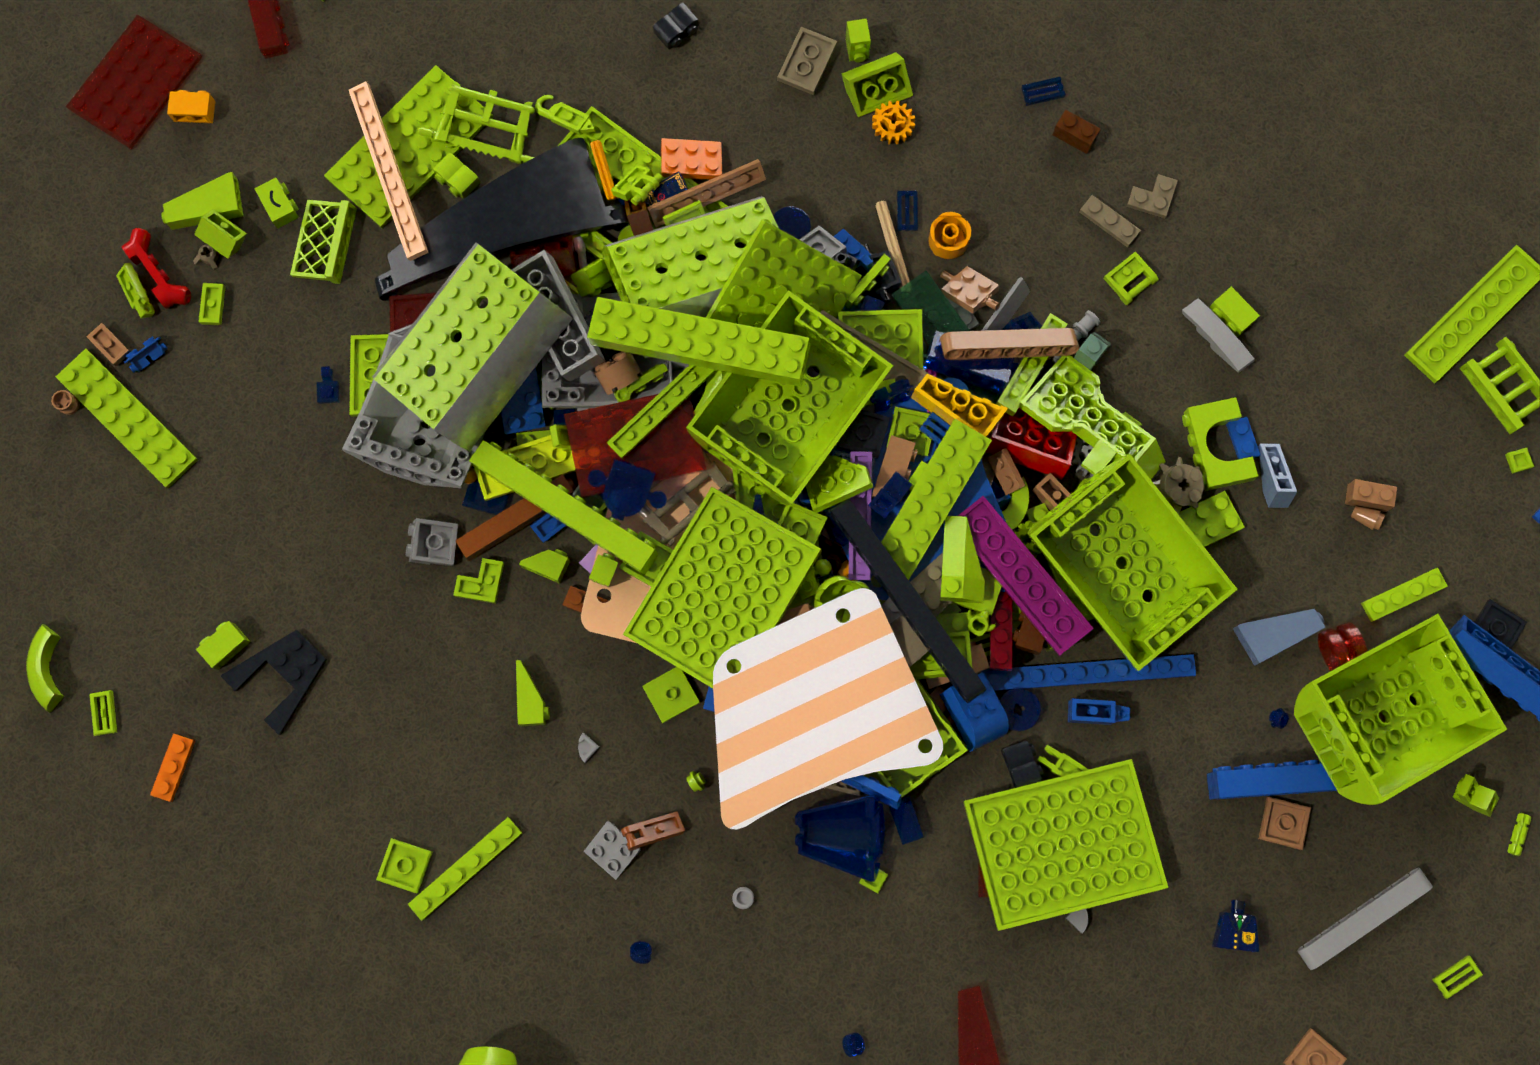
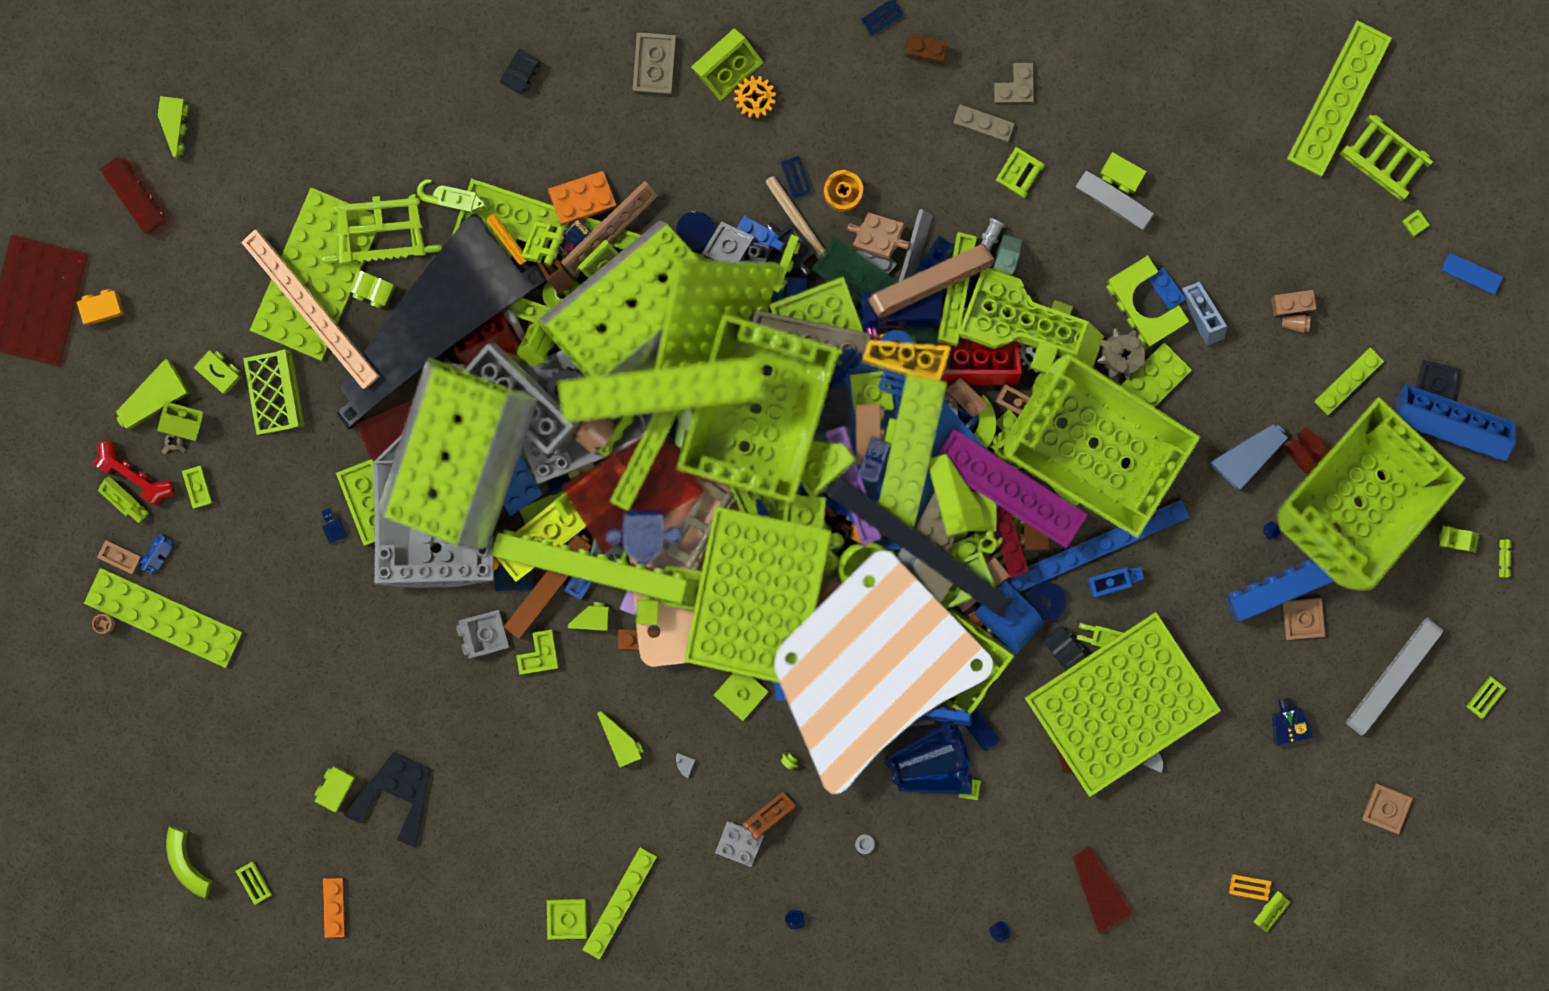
camera: 20 degrees left, 10 degrees up
(858, 40) = (695, 31): lime brick -> none

